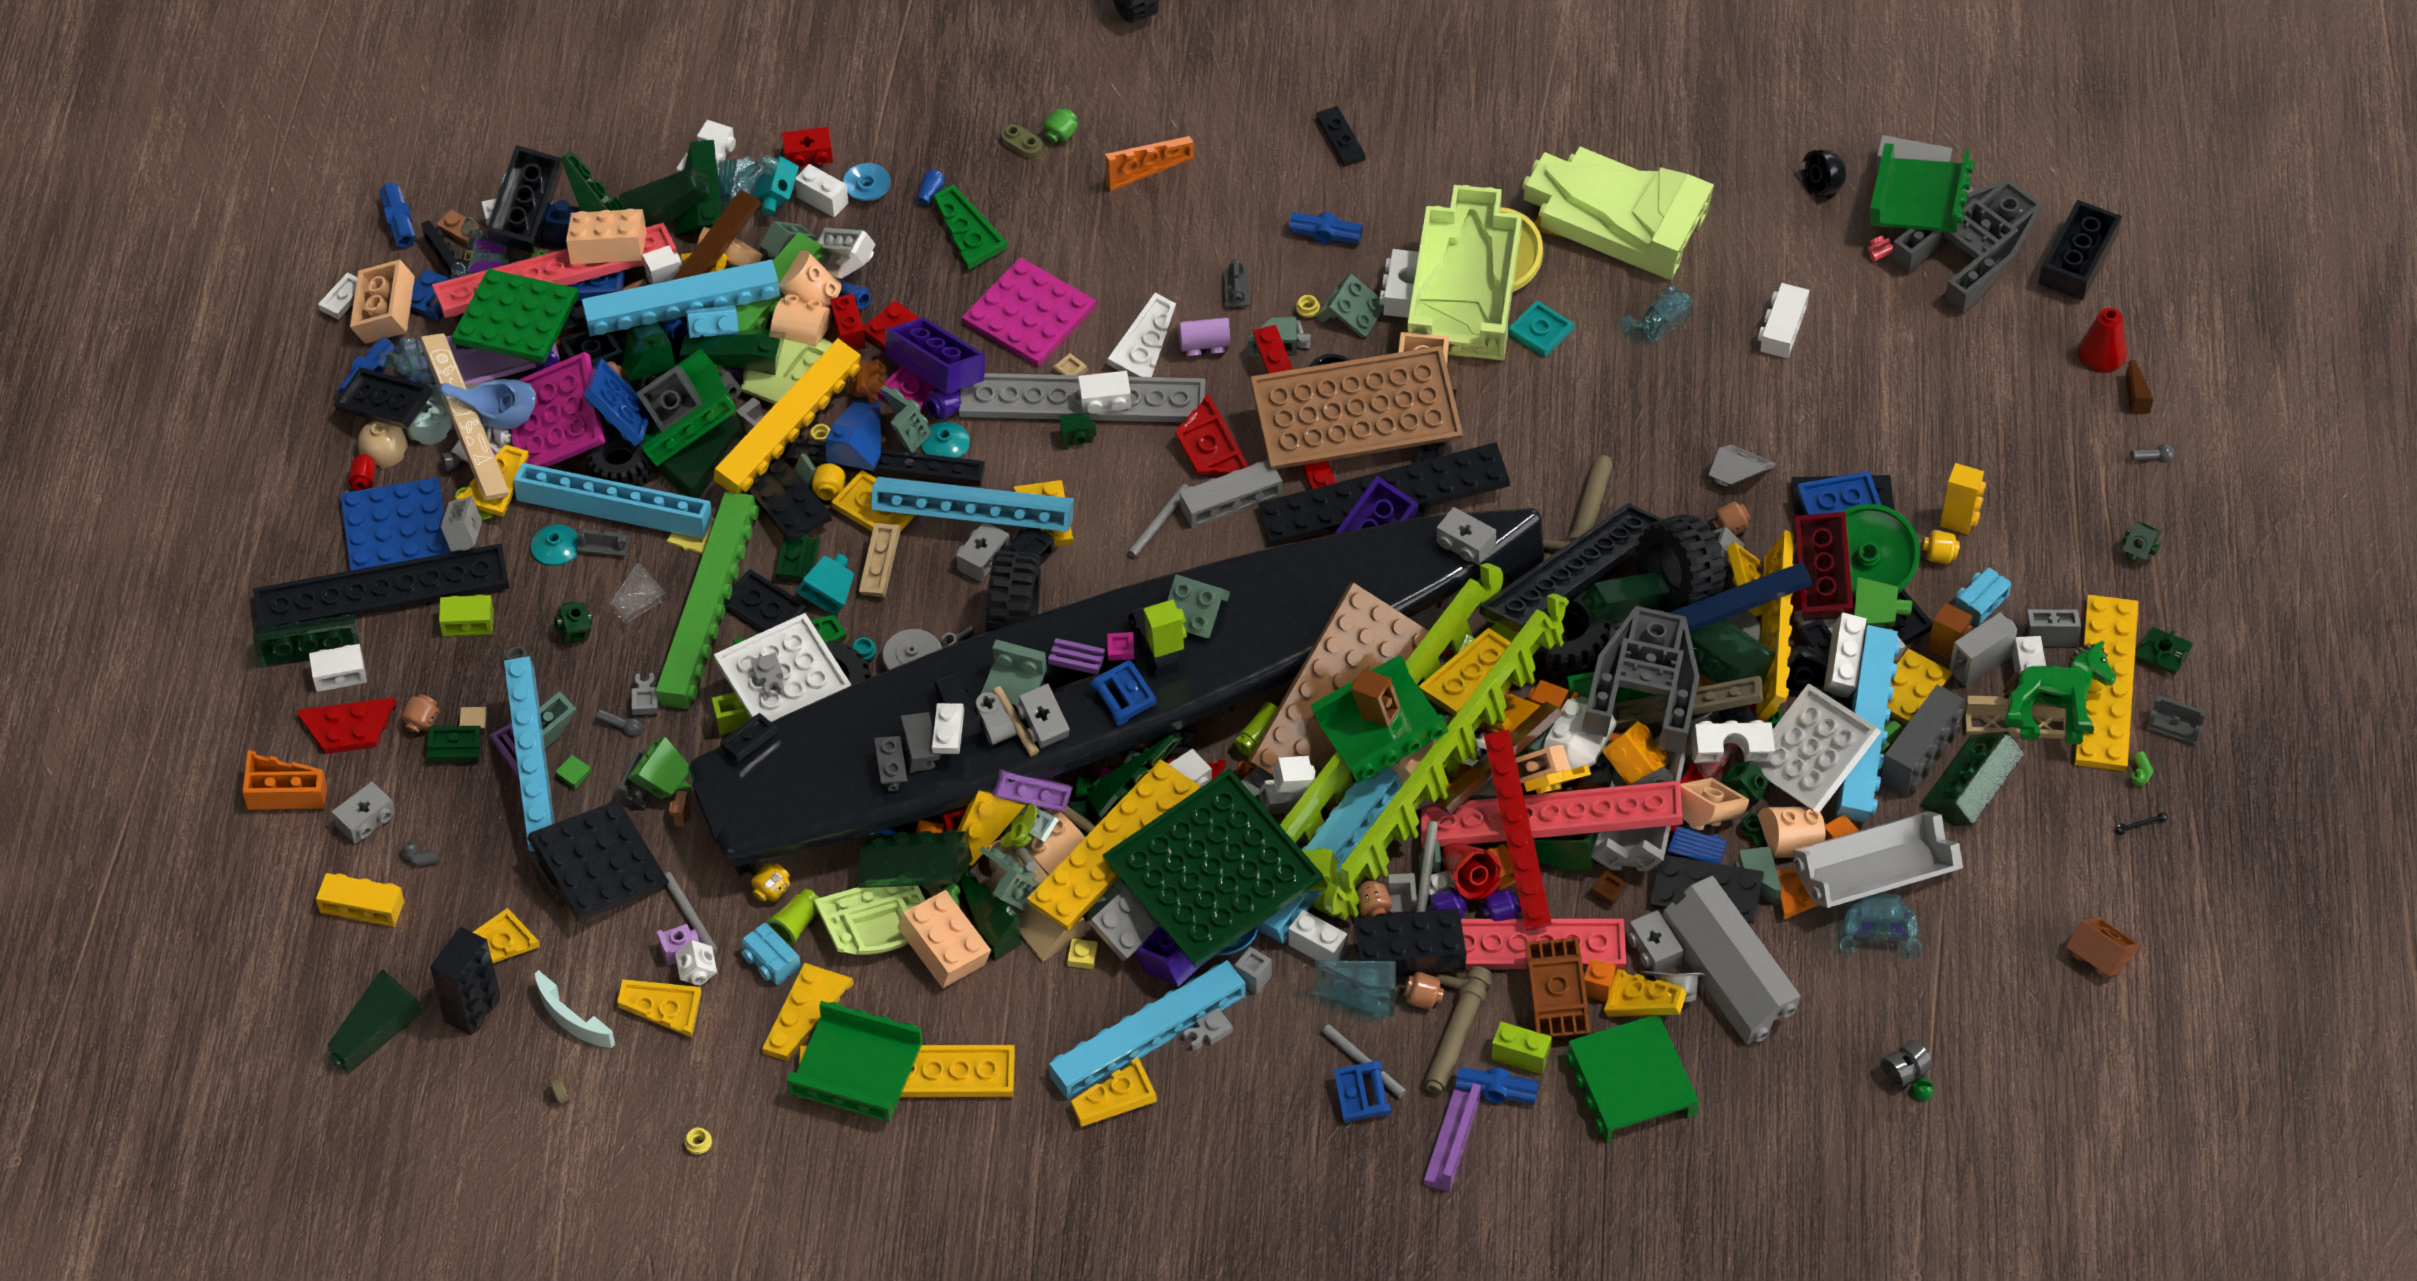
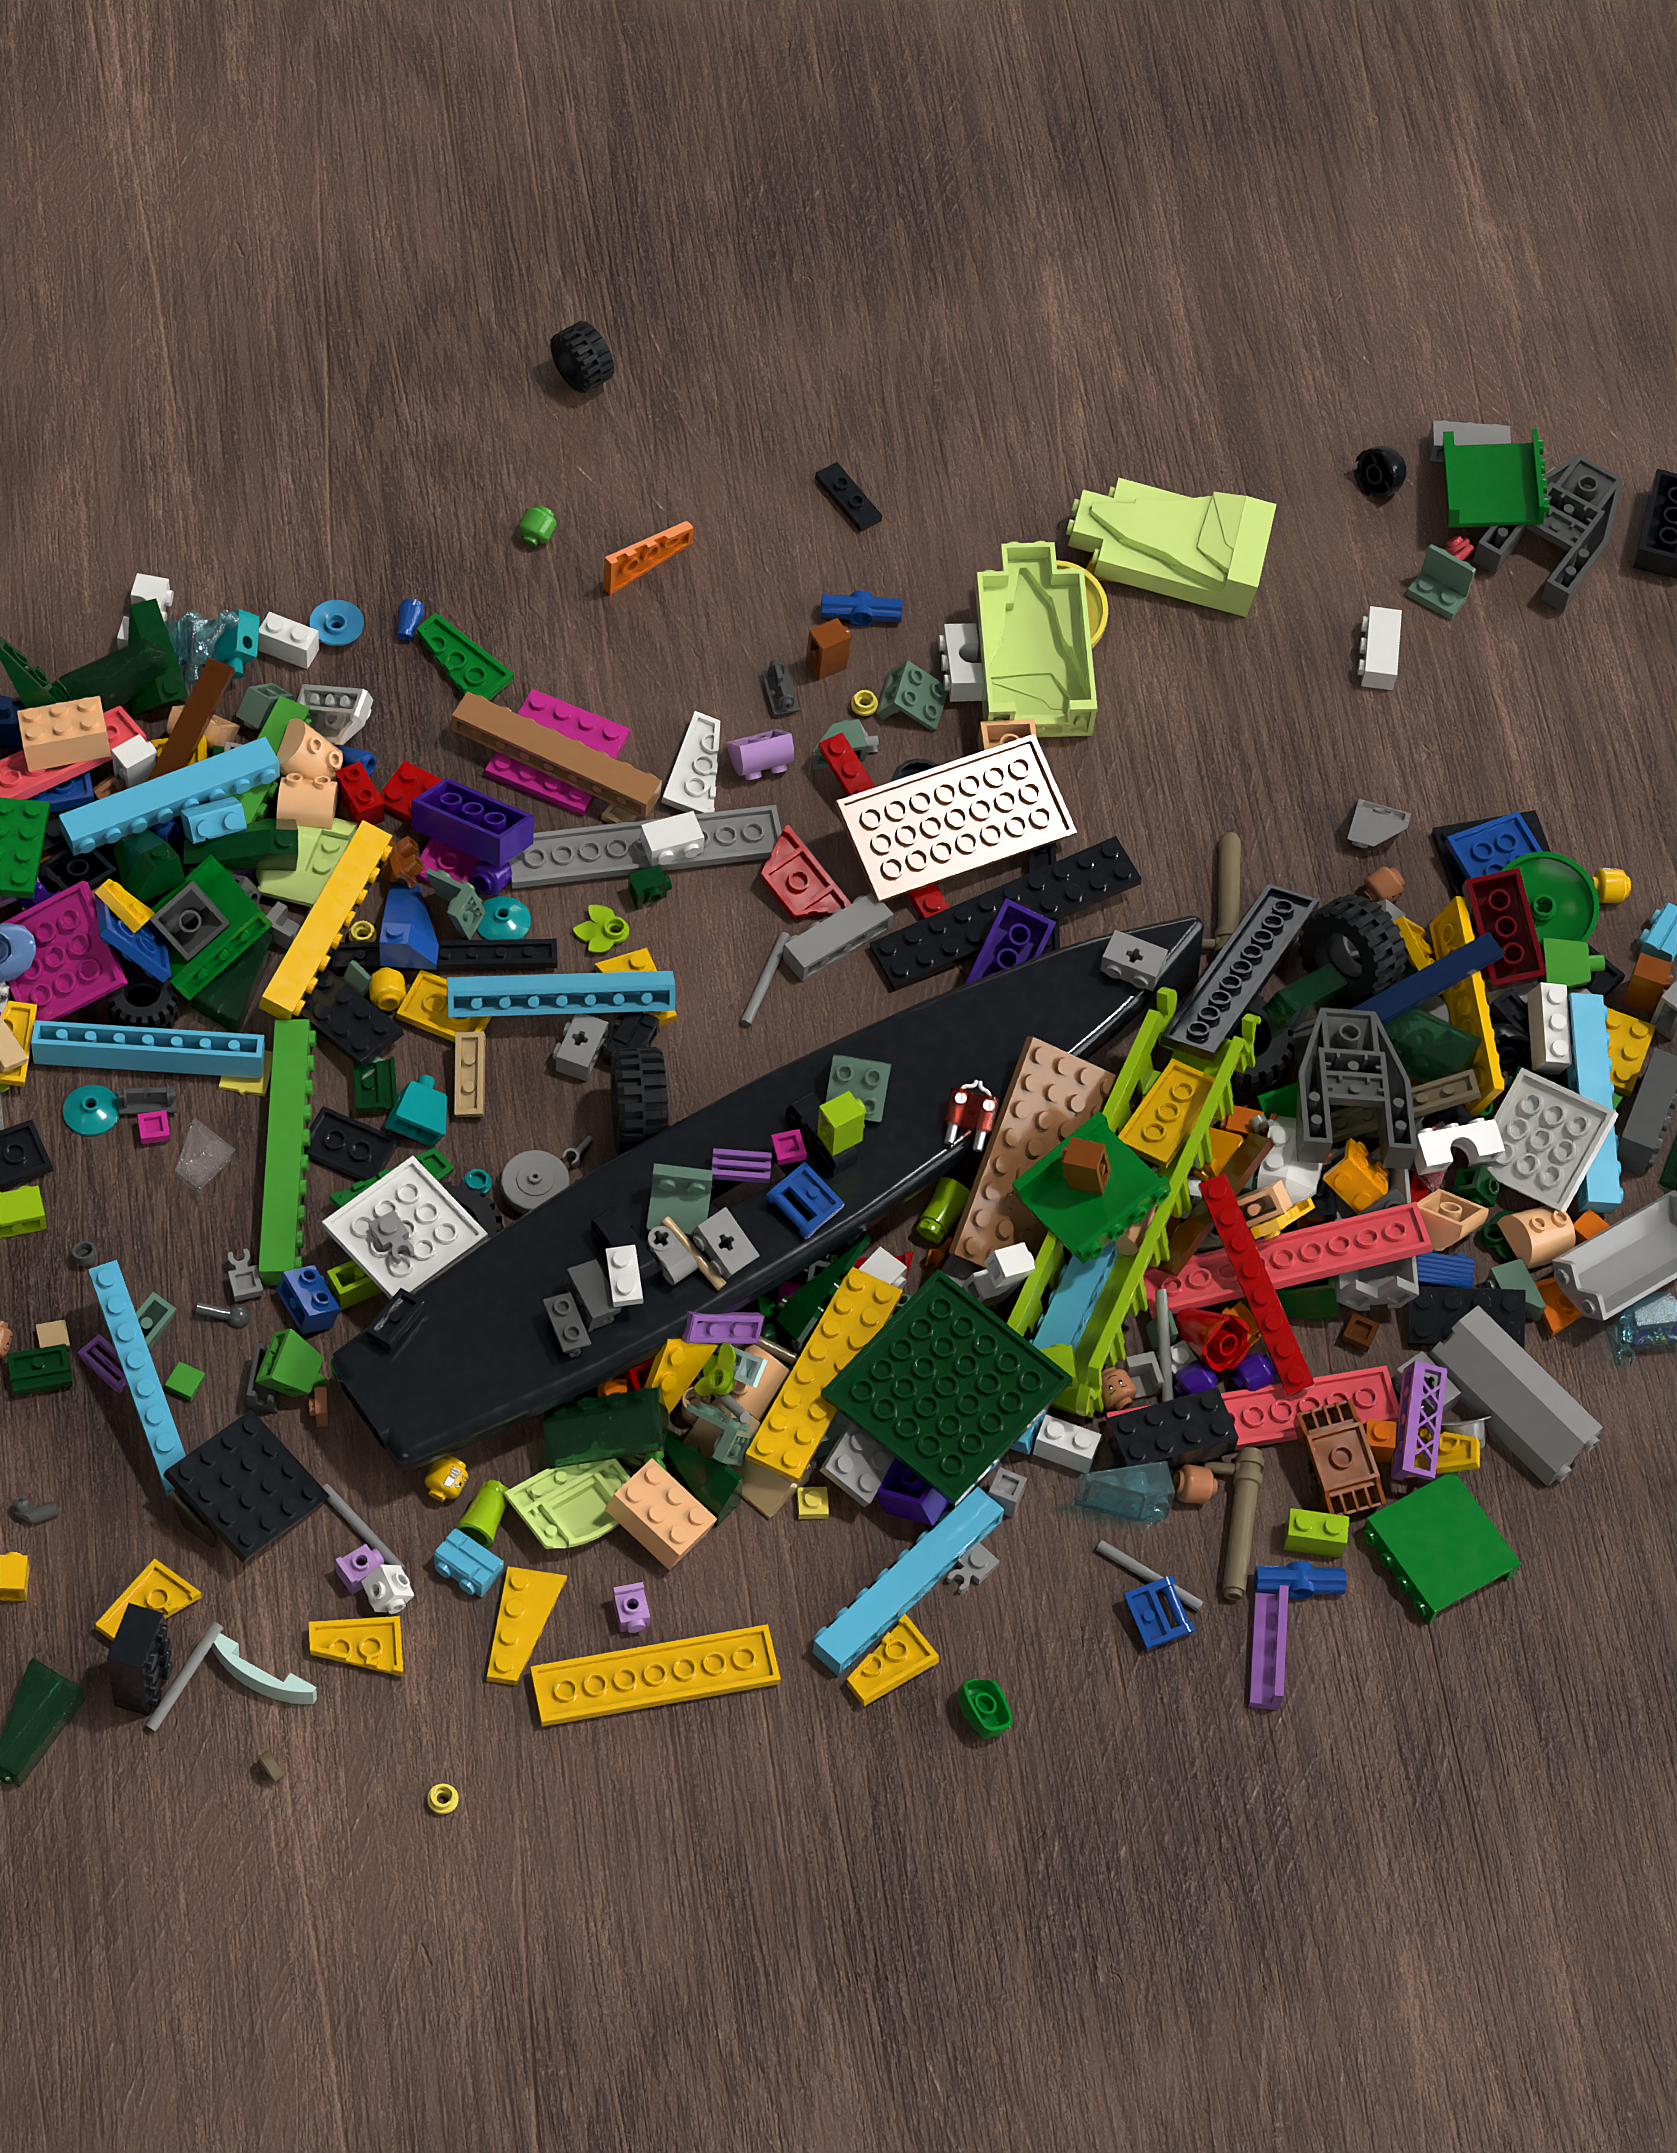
camera: 20 degrees left, 5 degrees up
(505, 1005) = (184, 1676): none -> light grey bar
(573, 622) = (140, 1202): dark green brick -> none
(602, 565) = (153, 1127): none -> dark pink plate
(615, 377) = (124, 905): none -> yellow wing
(692, 720) = (308, 1299): none -> blue brick
(808, 146) = (258, 589): red brick -> none
(857, 1061) = (600, 1675): green panel -> none
(901, 1007) = (627, 1597): none -> lavender brick
(1018, 140) = (496, 550): olive plate -> none
(1023, 311) = (556, 755): none -> medium nougat brick
(1025, 462) = (599, 929): none -> lime plate
(1185, 1143) = (984, 1707): none -> green piece
(1285, 255) = (828, 648): none -> dark orange brick
(1288, 640) = (970, 1112): none -> clear red piece
(1540, 329) = (1124, 693): teal tile -> none
(1559, 697) = (1260, 1123): none -> light grey hand
(1627, 962) = (1408, 1421): none -> medium lavender fence
(1662, 315) = (1254, 660): clear light blue torso -> none
(1856, 273) = (1442, 582): none -> sand green bracket
(1963, 499) = (1625, 829): yellow brick -> none

